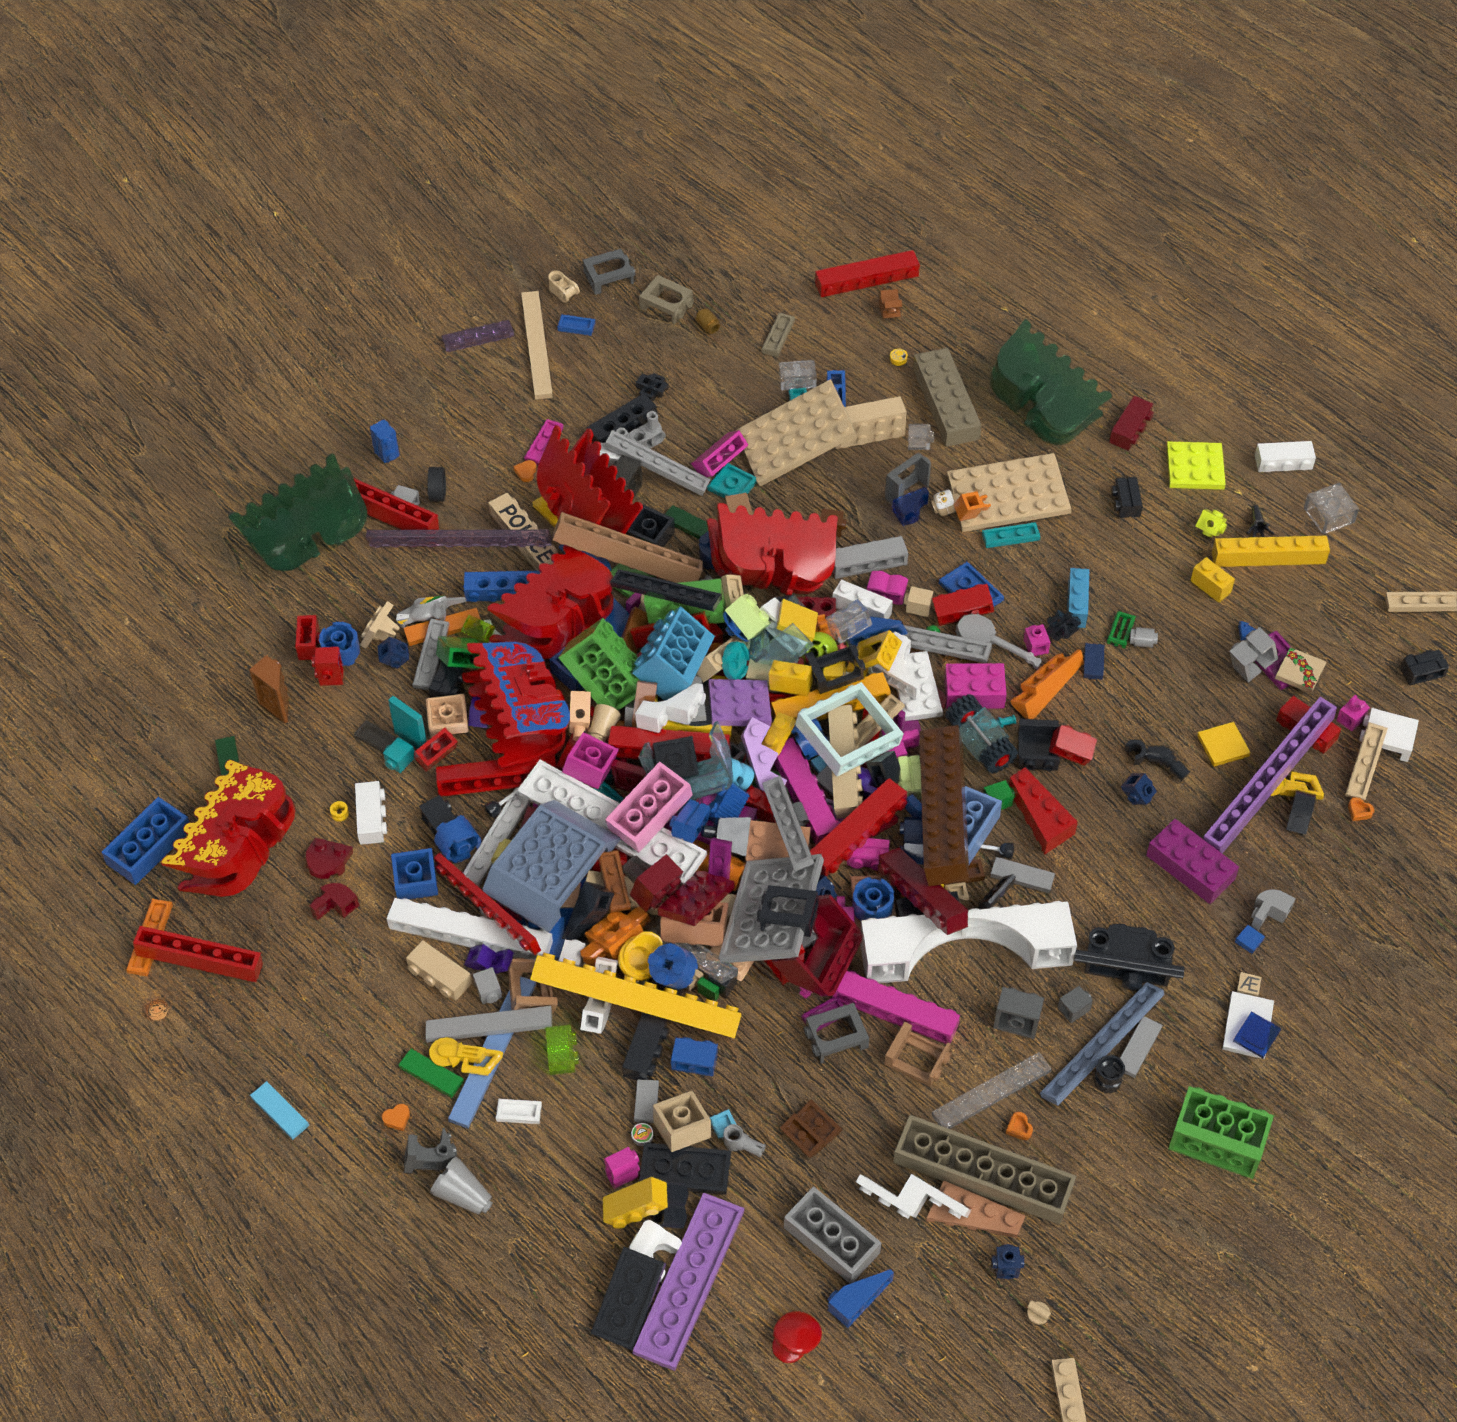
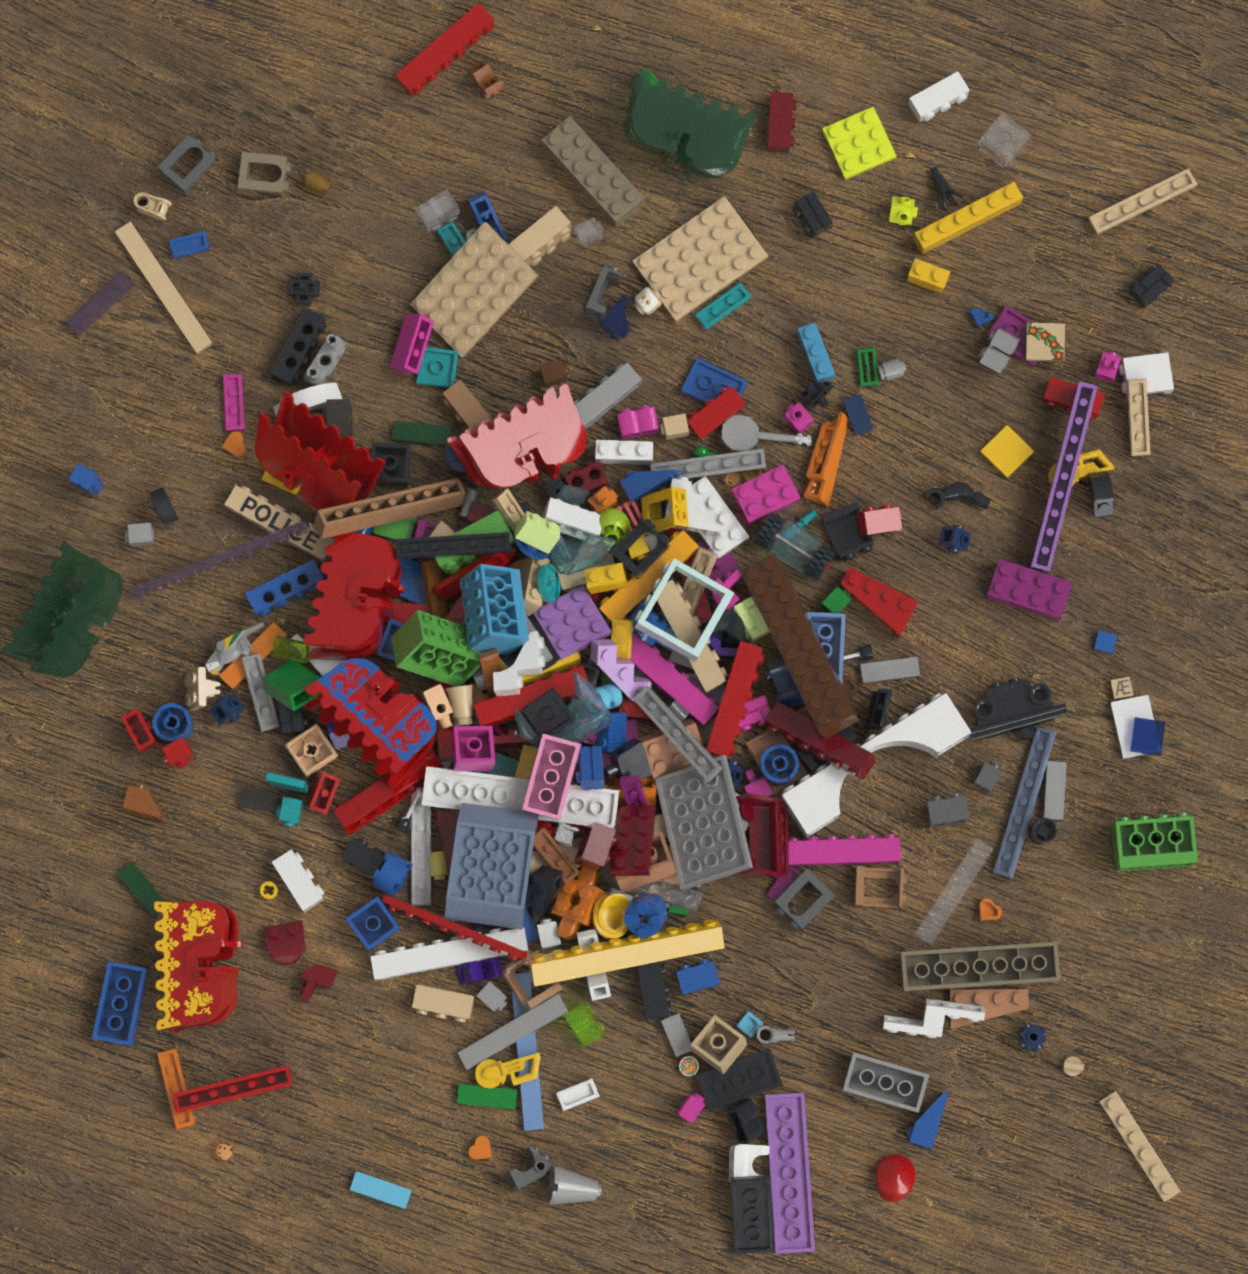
camera: 25 degrees left, 25 degrees up
(396, 510) = (135, 553): red brick -> none
(635, 1202) = (719, 1136): yellow brick -> none
(657, 463) = (360, 386): light grey plate -> none
(778, 334) = (393, 165): dark tan tile -> none
(802, 618) = (582, 513): yellow tile -> none
(803, 921) = (713, 841): black panel -> none
(811, 1129) = (822, 995): reddish brown slope -> none
(849, 621) = (627, 489): clear brick -> none
(898, 357) = (523, 140): yellow tile -> none
(913, 806) = (769, 648): blue tile -> none
(970, 505) = (677, 301): orange brick -> none
(1273, 904) = (1113, 599): light grey brick -> none
(1359, 809) = (1149, 465): orange tile -> none

